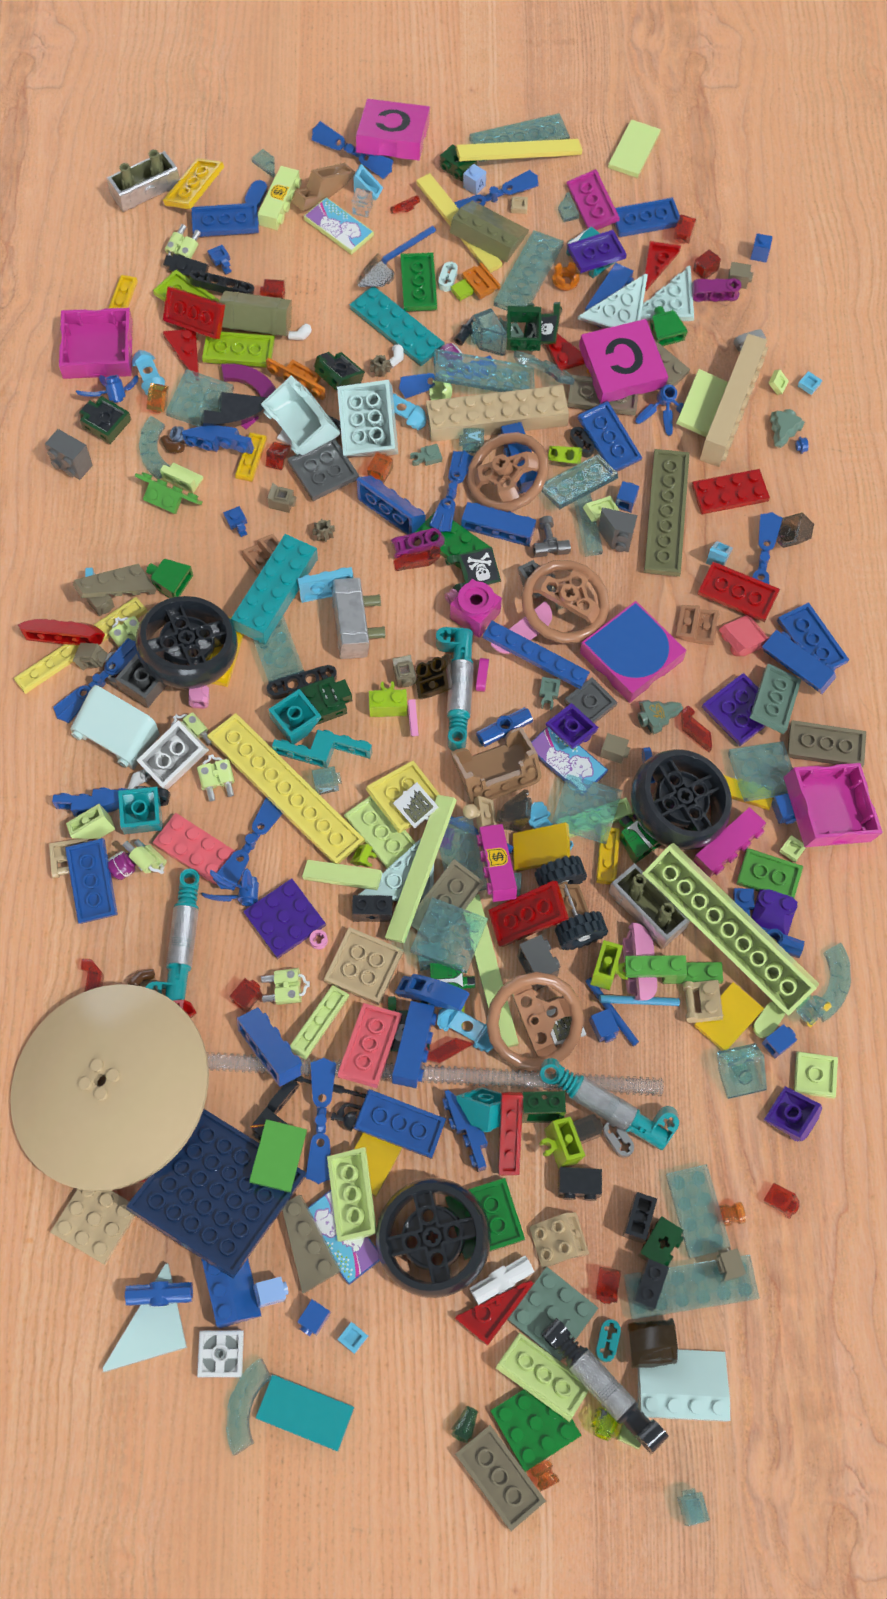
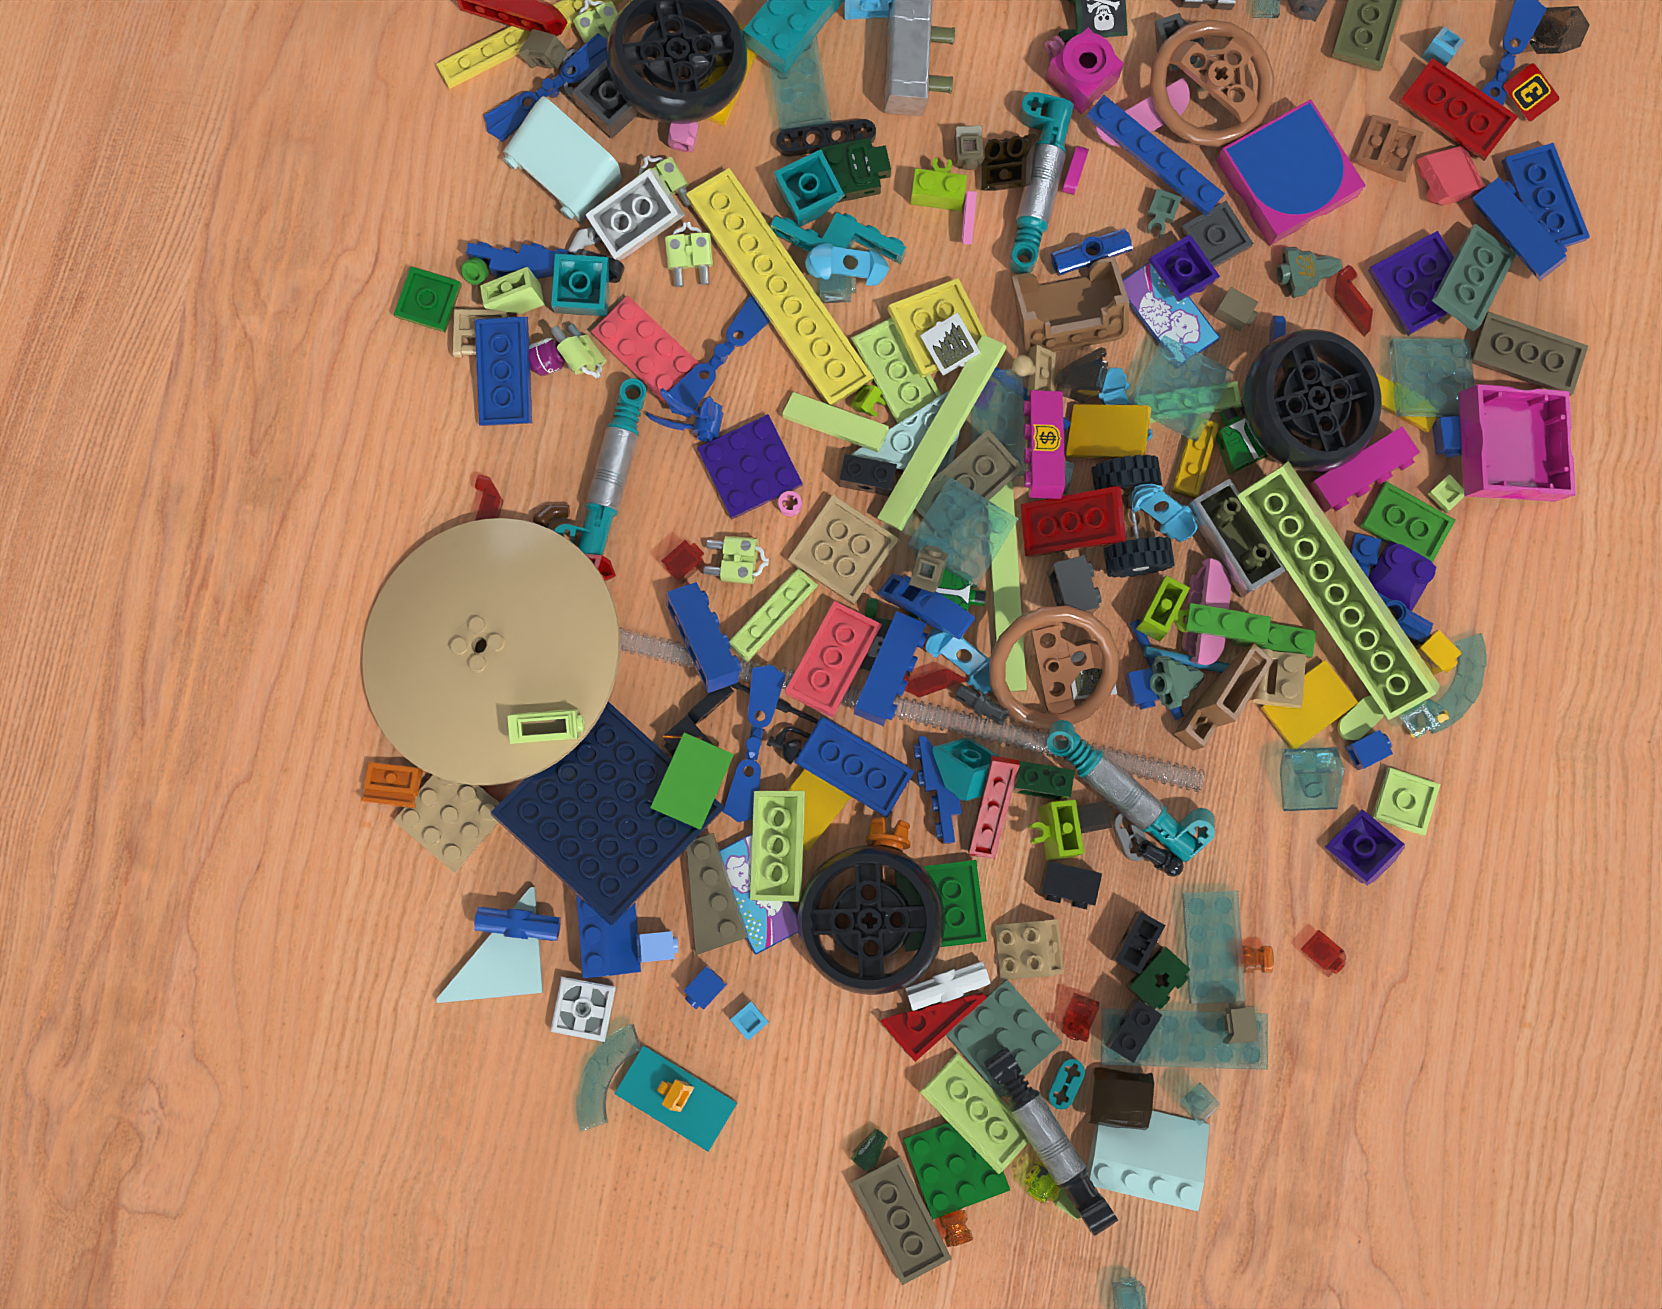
camera: 10 degrees right, 15 degrees up
(28, 840) = (427, 299): none -> green plate
(46, 1204) = (392, 785): none -> orange plate
(60, 814) = (474, 270): none -> bright green tile
(181, 1123) = (574, 725): none -> yellowish green window
(304, 1408) = (675, 1093): none -> light orange tile
(317, 762) = (828, 259): none -> medium azure piece
(429, 964) = (929, 568): none -> dark tan window
(442, 1172) = (879, 837): none -> orange piece
(487, 1059) = (982, 704): none -> dark grey pin
(602, 900) = (1175, 519): none -> medium azure piece
(625, 1015) = (1173, 681): none -> sand green rock
(644, 1150) = (1161, 858): none -> black pin
(665, 1022) = (1224, 697): none -> medium nougat slope
(713, 1335) = (1200, 1103): none -> clear light blue brick
(786, 573) = (1531, 92): none -> sticker
(813, 961) = (1438, 652): none -> yellow brick

